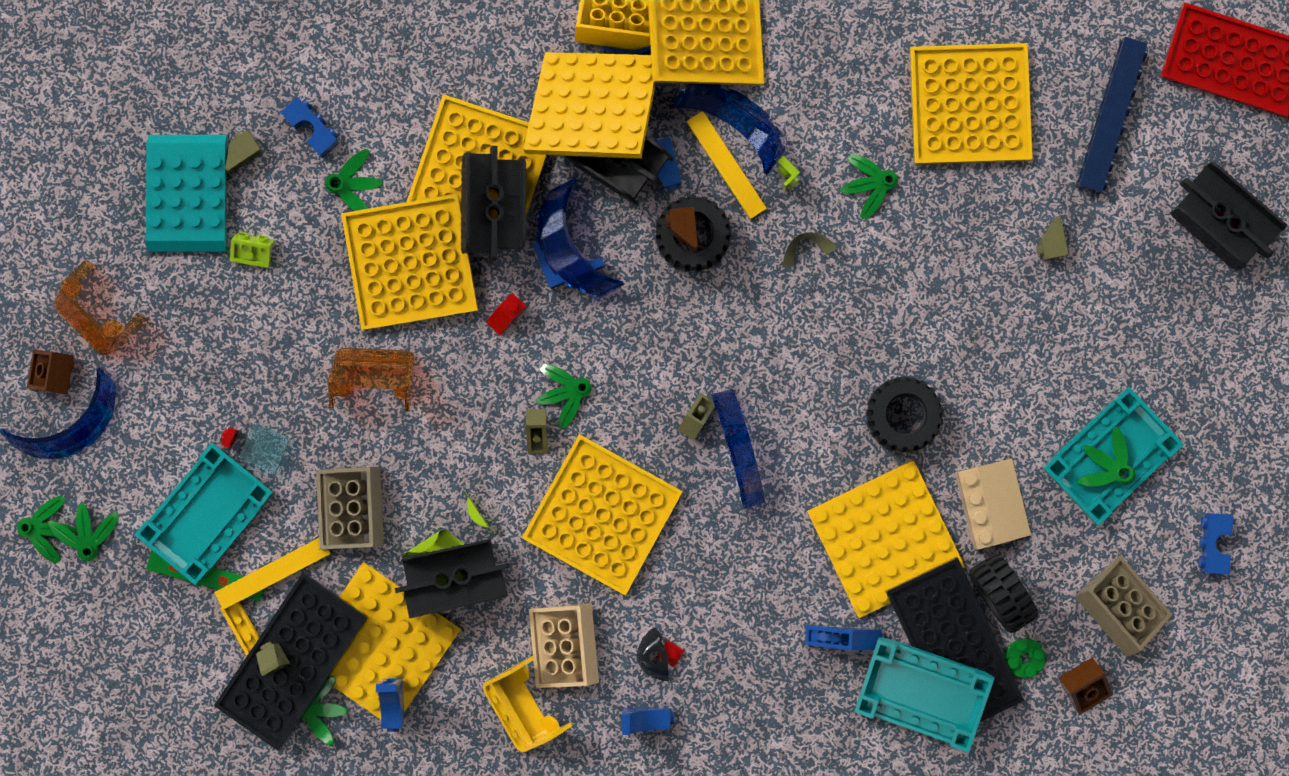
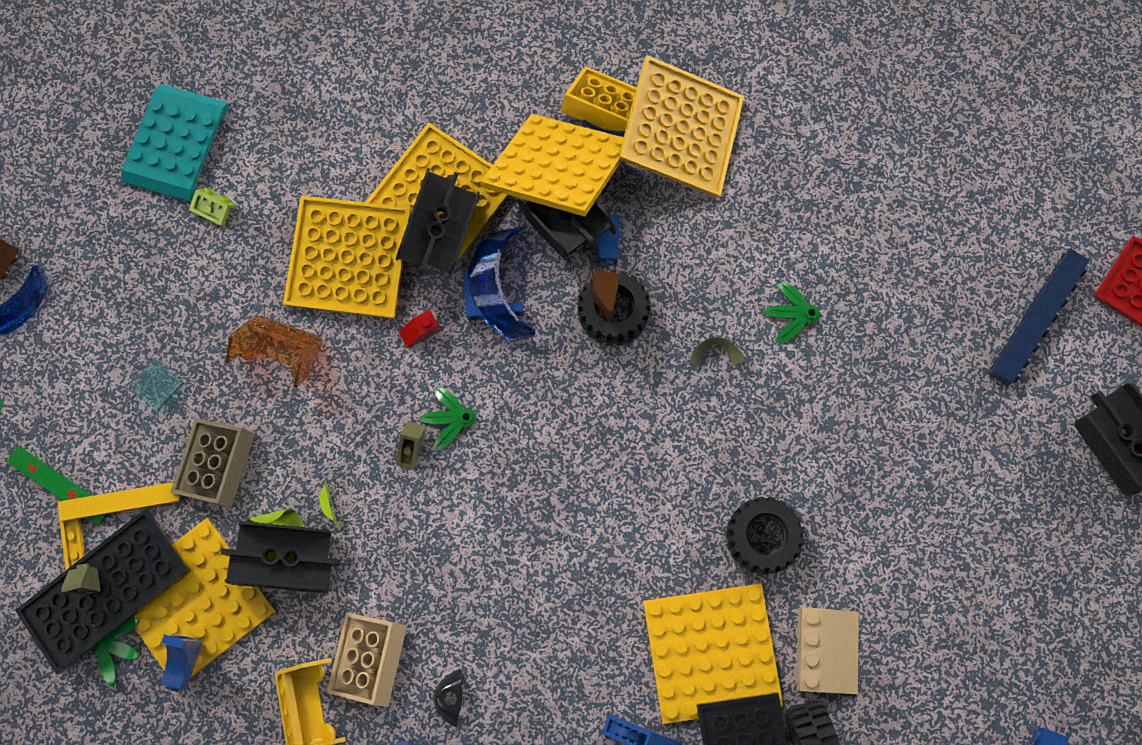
camera: 25 degrees right, 10 degrees down
(101, 339) = (55, 240): clear orange windscreen -> none
(204, 514) = (78, 428): teal slope -> none
(229, 436) = (128, 364): red plate -> none
(241, 150) = (234, 119): olive slope -> none
(299, 113) = (297, 103): blue arch -> none
(346, 183) = (316, 173): green plant -> none
(602, 514) = (445, 543): yellow plate -> none
(673, 653) = (469, 700): red plate -> none
(696, 416) = (565, 477): olive slope -> none
(726, 165) = (664, 258): yellow tile -> none
(739, 113) = (687, 212): clear blue windscreen -> none
(739, 448) = (595, 520): clear blue windscreen -> none
(786, 169) = (719, 278): lime bracket -> none
(970, 103) = (907, 268): yellow plate -> none
(1053, 241) = (953, 417): olive slope -> none
(1114, 468) = (959, 652): green plant -> none
(1147, 443) = (960, 640): teal slope -> none

